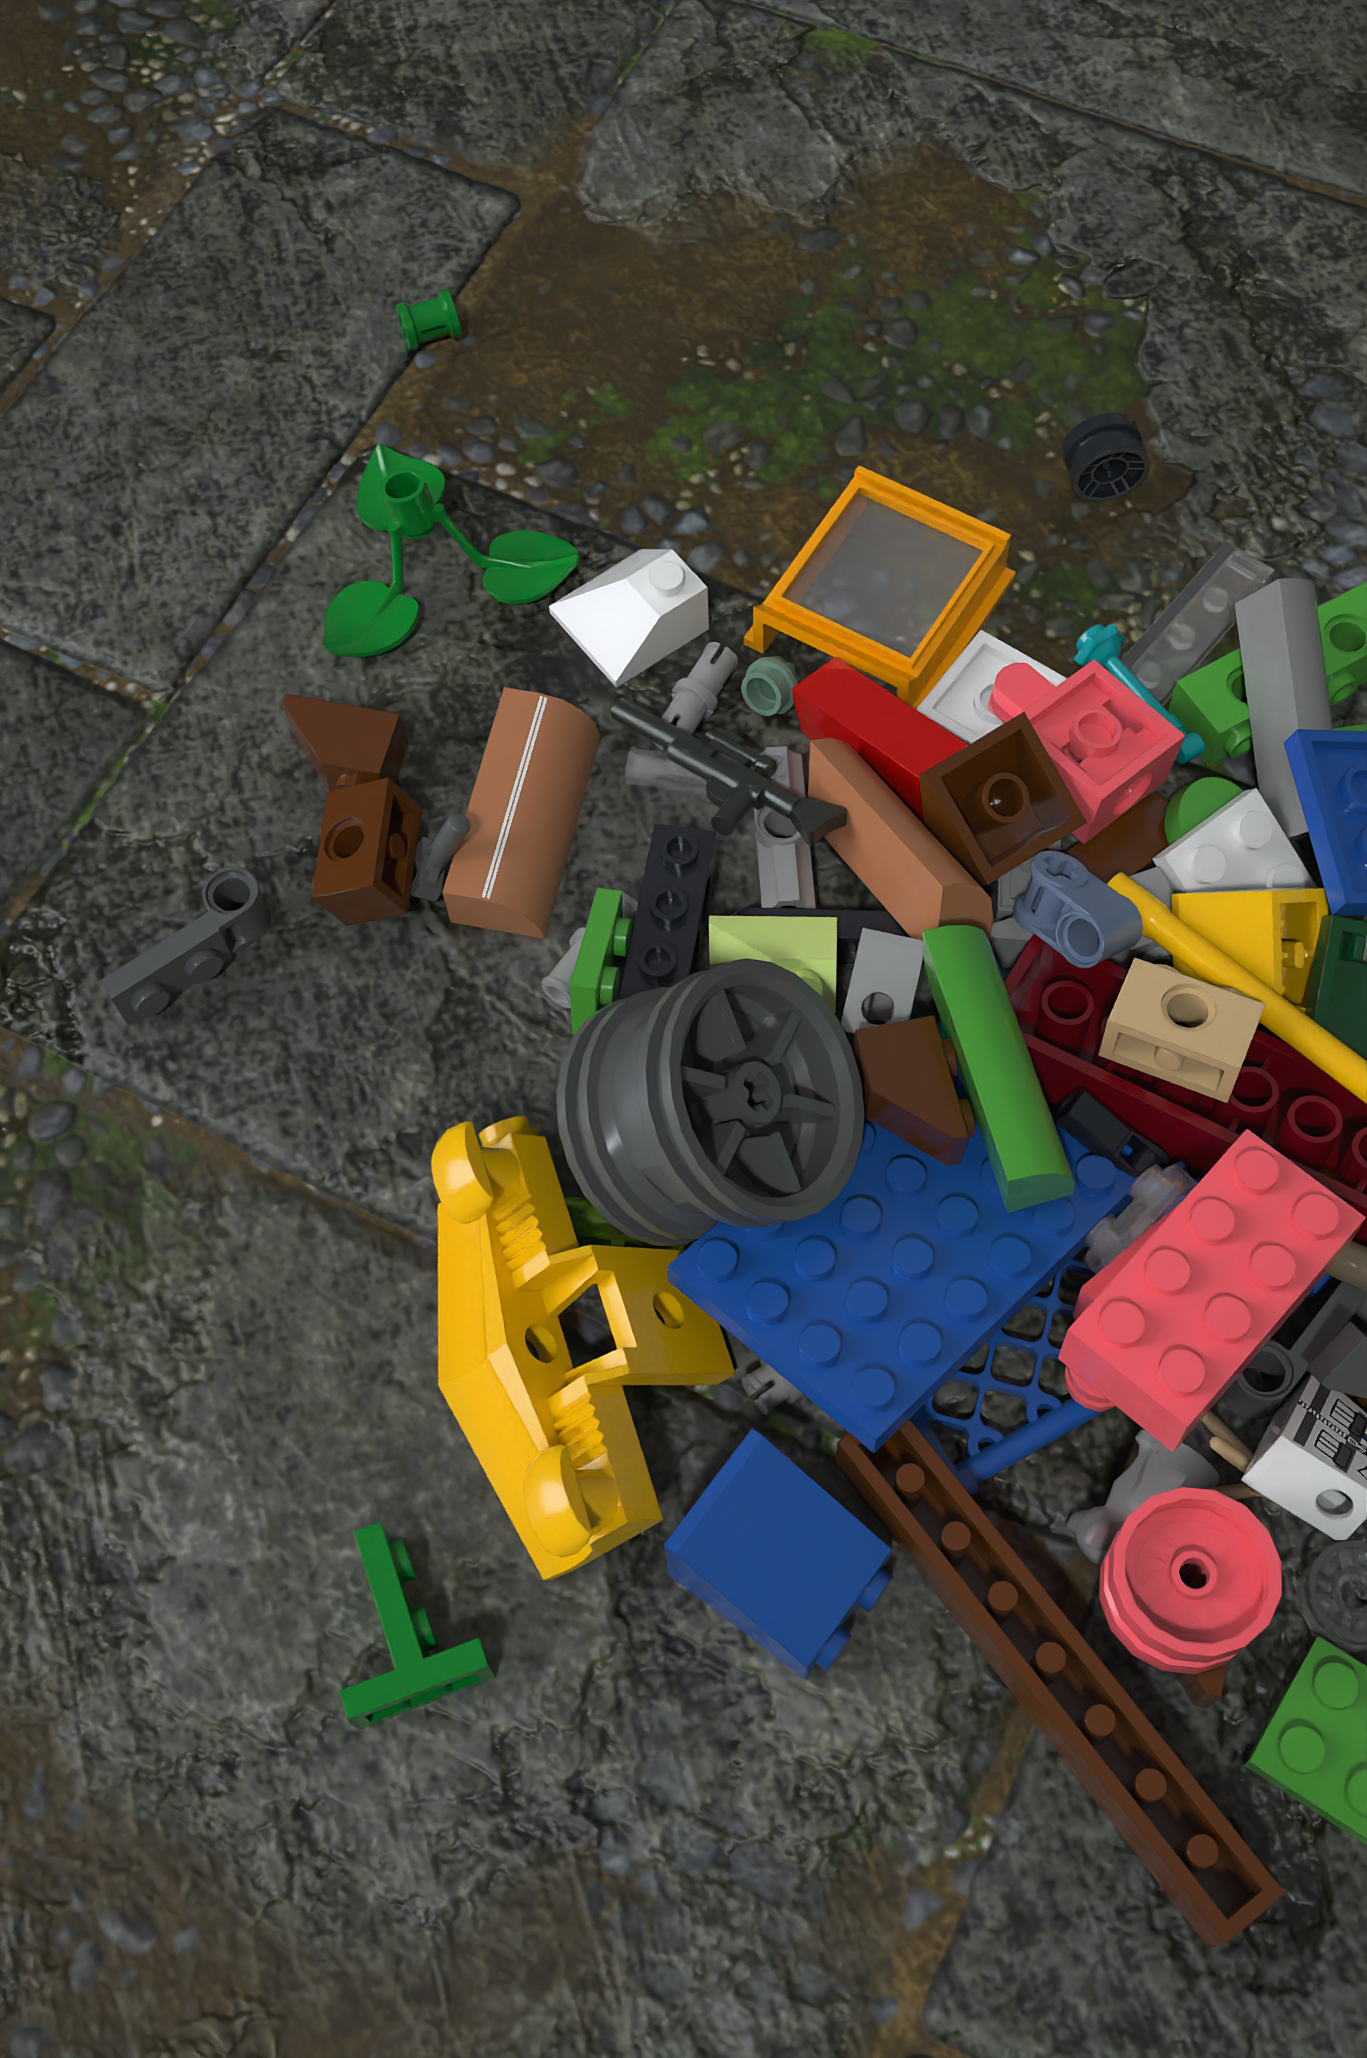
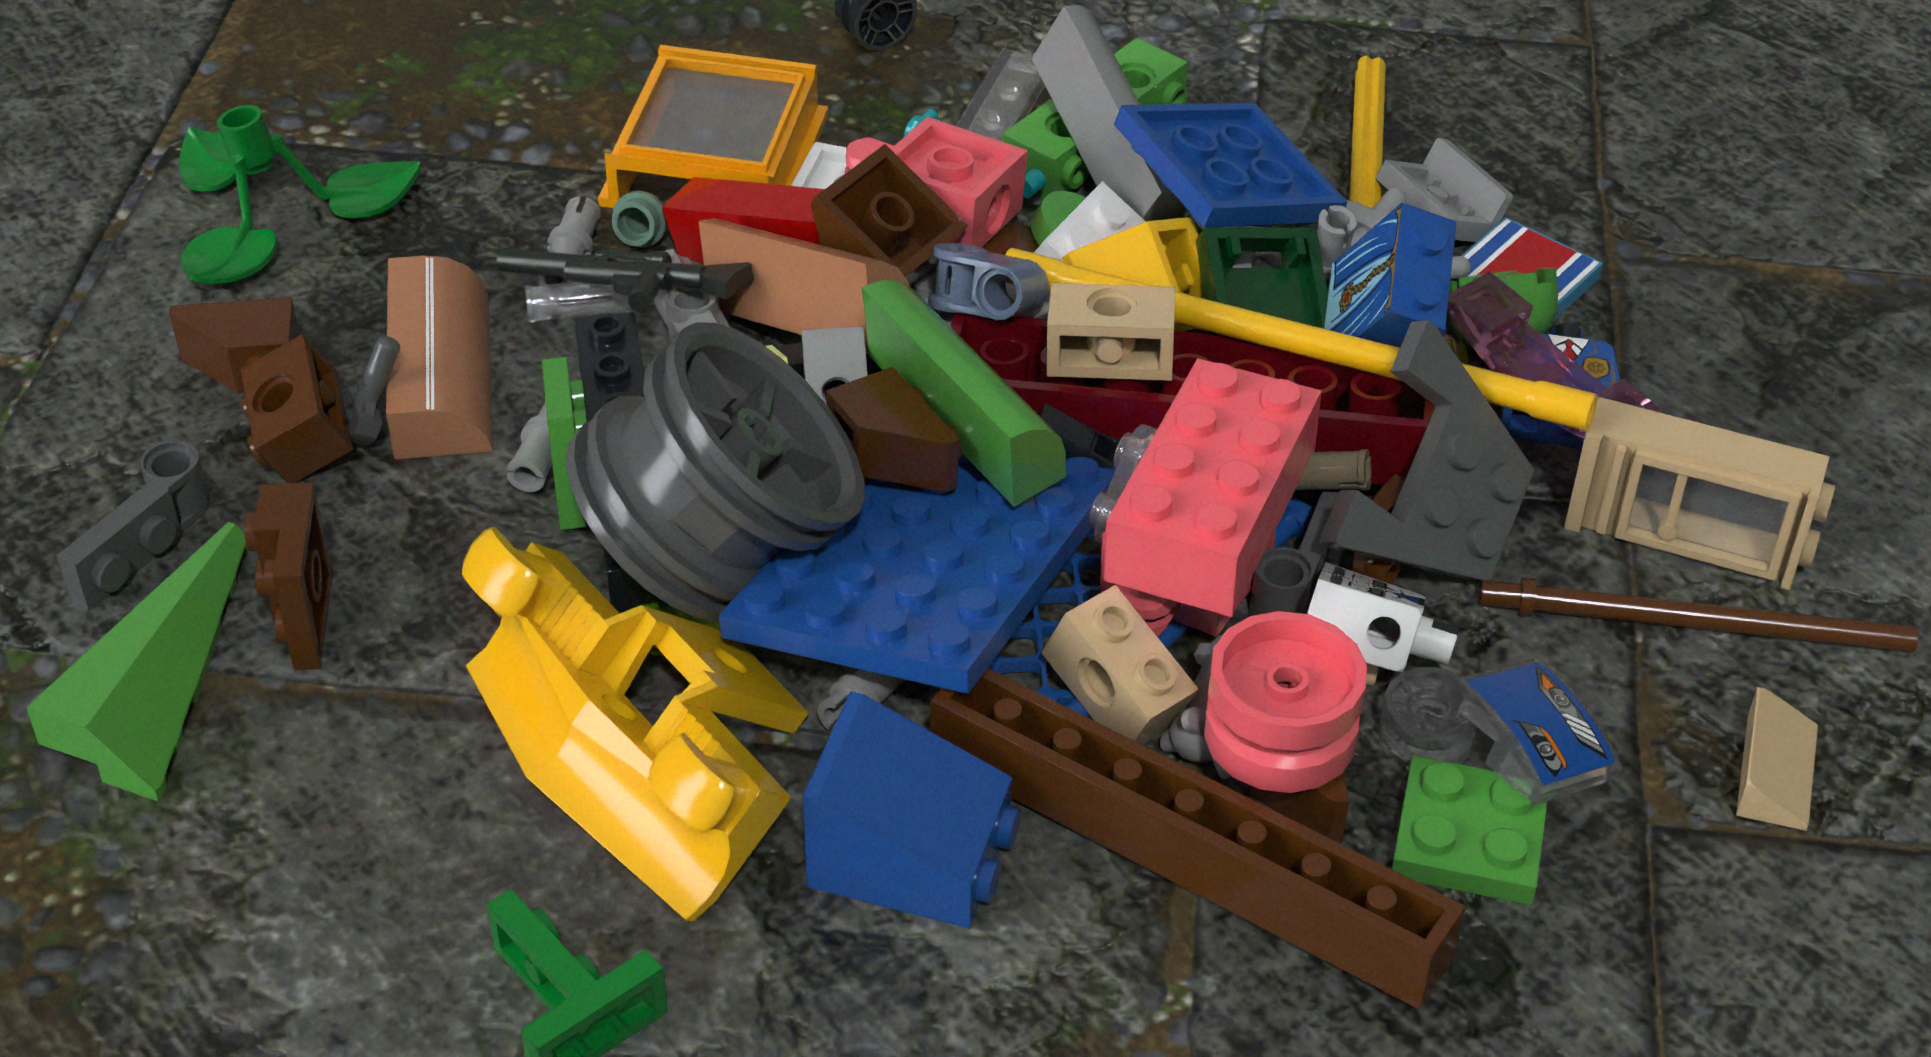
camera: 25 degrees left, 20 degrees down
(131, 1147) = (135, 685): none -> bright green wedge
(307, 1062) = (292, 567): none -> reddish brown plate
(428, 320) = (205, 32): green bush -> none
(635, 612) = (492, 196): white slope -> none
(1047, 1447) = (1119, 667): none -> tan brick

